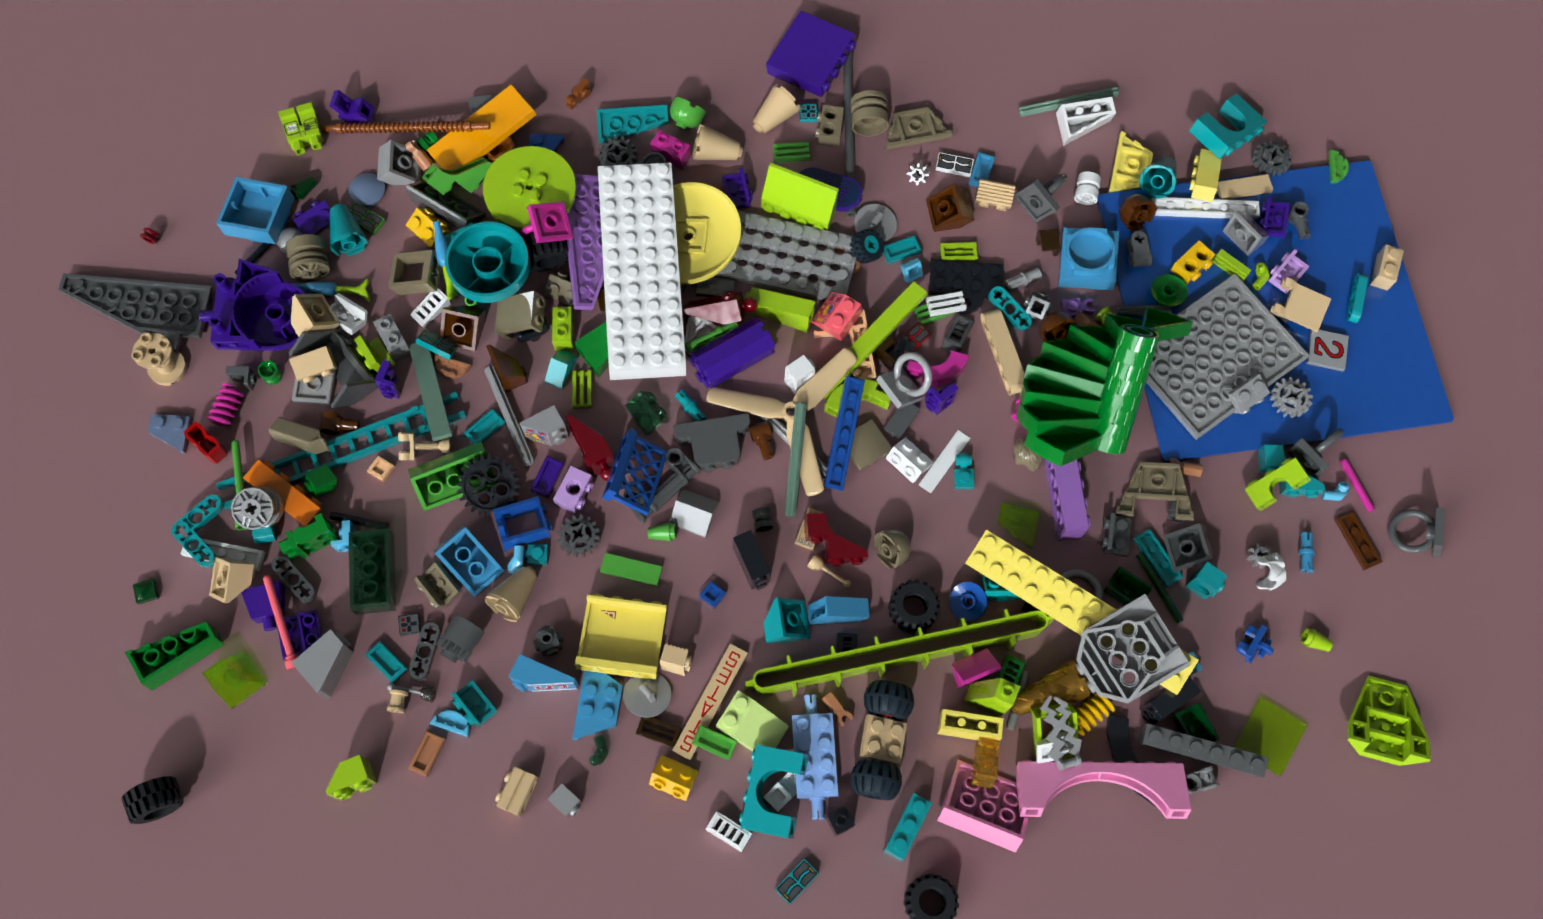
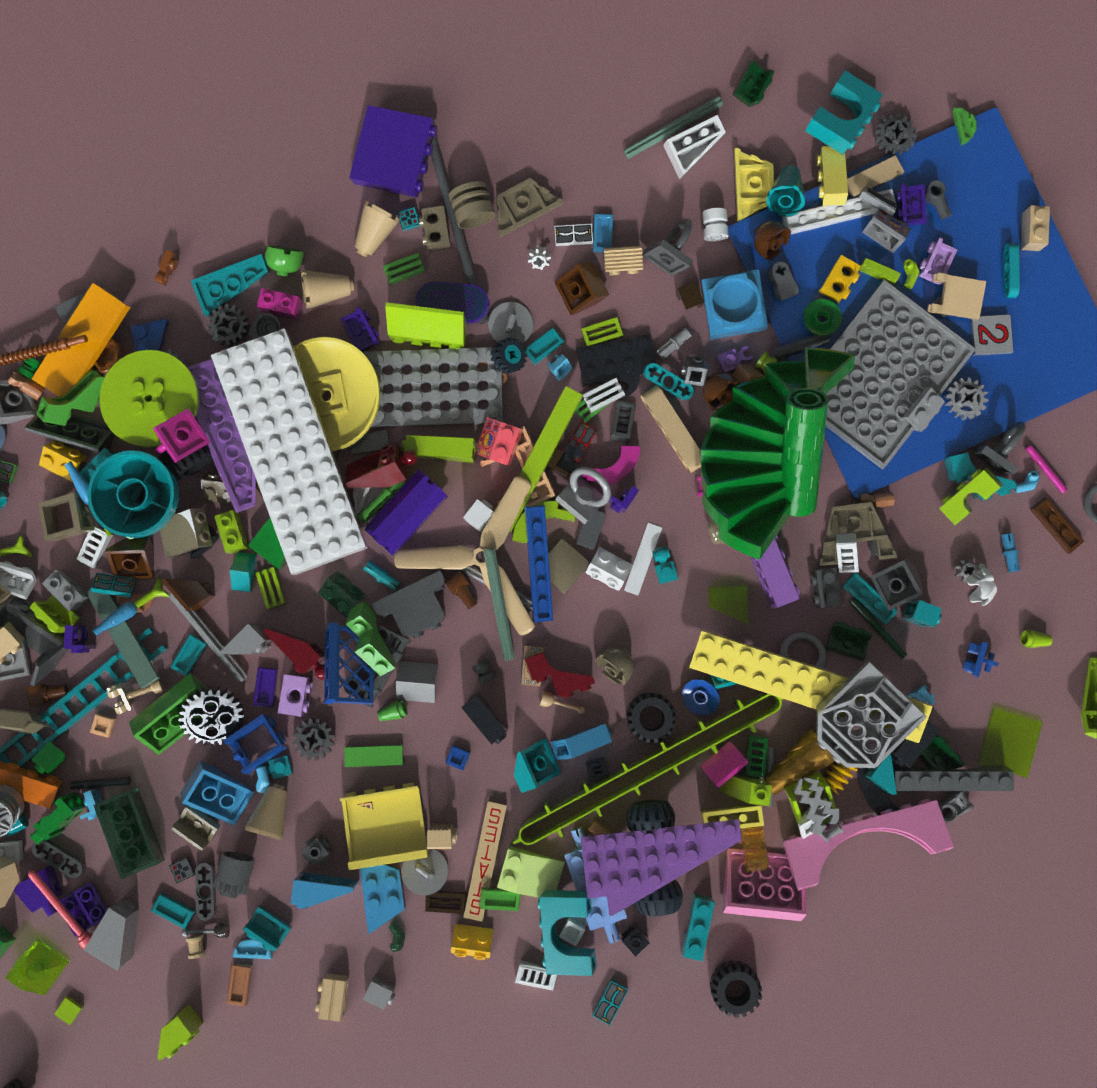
camera: 10 degrees left, 15 degrees up
(249, 730) = (68, 1010): none -> lime tile
(445, 368) = (130, 608): none -> dark azure piece
(662, 457) = (370, 643): none -> bright green arch
(868, 734) = (638, 863): none -> medium lavender wing
(1133, 726) = (883, 775): none -> teal slope
(1147, 491) = (847, 541): none -> white slope
(1149, 85) = (752, 84): none -> dark green bracket
(1244, 205) = (878, 200): none -> dark grey tile

